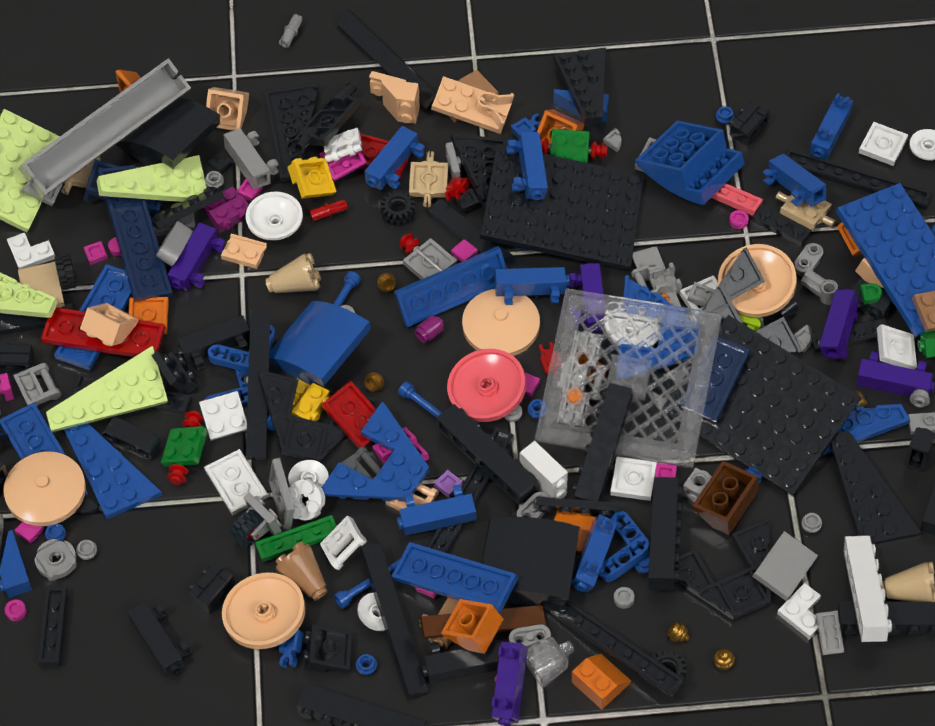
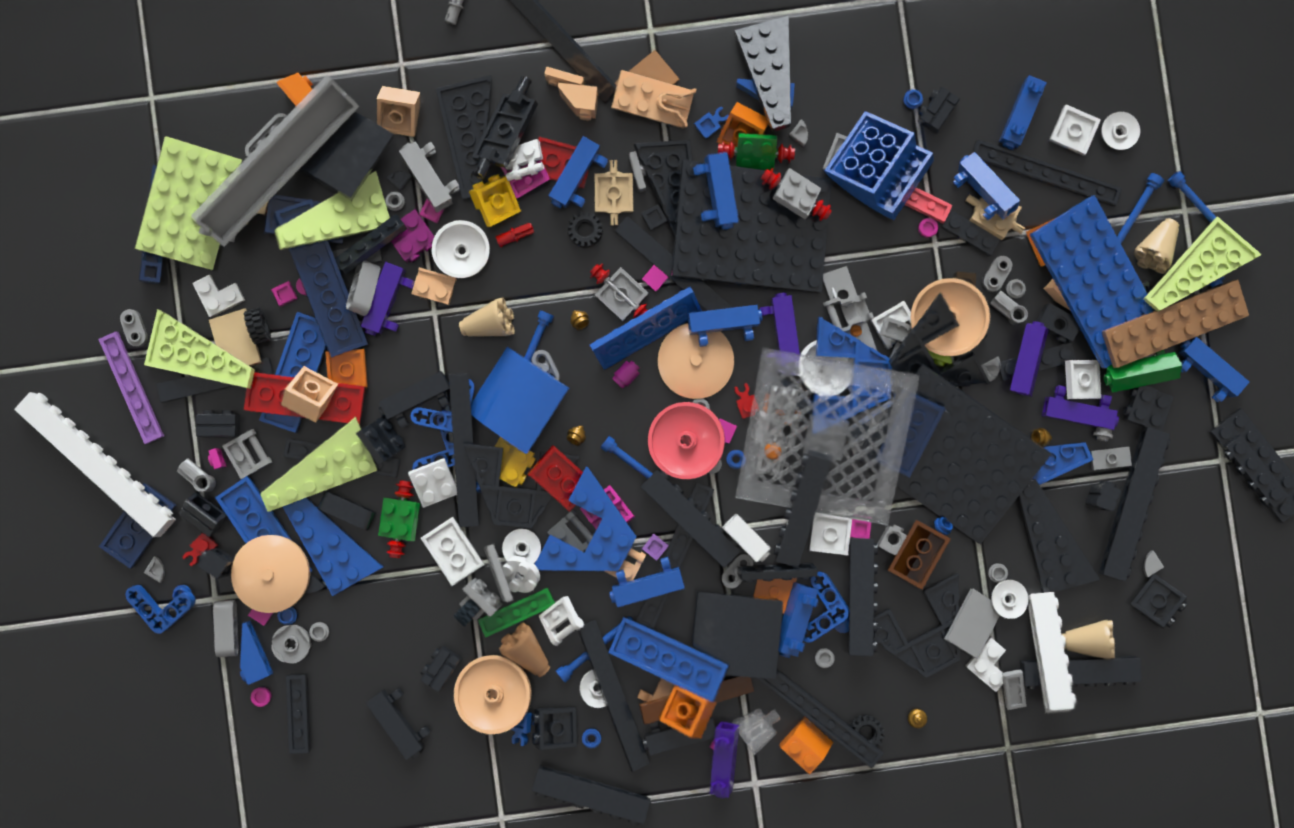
camera: 10 degrees left, 30 degrees up
(456, 186) = (642, 204): red plate -> none
(529, 634) = (739, 706): light grey plate -> none
(607, 176) = (796, 193): none -> light grey plate
(678, 632) = (874, 693): pearl gold plate -> none
(827, 271) = (1015, 288): none -> light grey plate
(827, 539) = (1017, 599): none -> white dish
(870, 293) = (1060, 322): green tile -> none

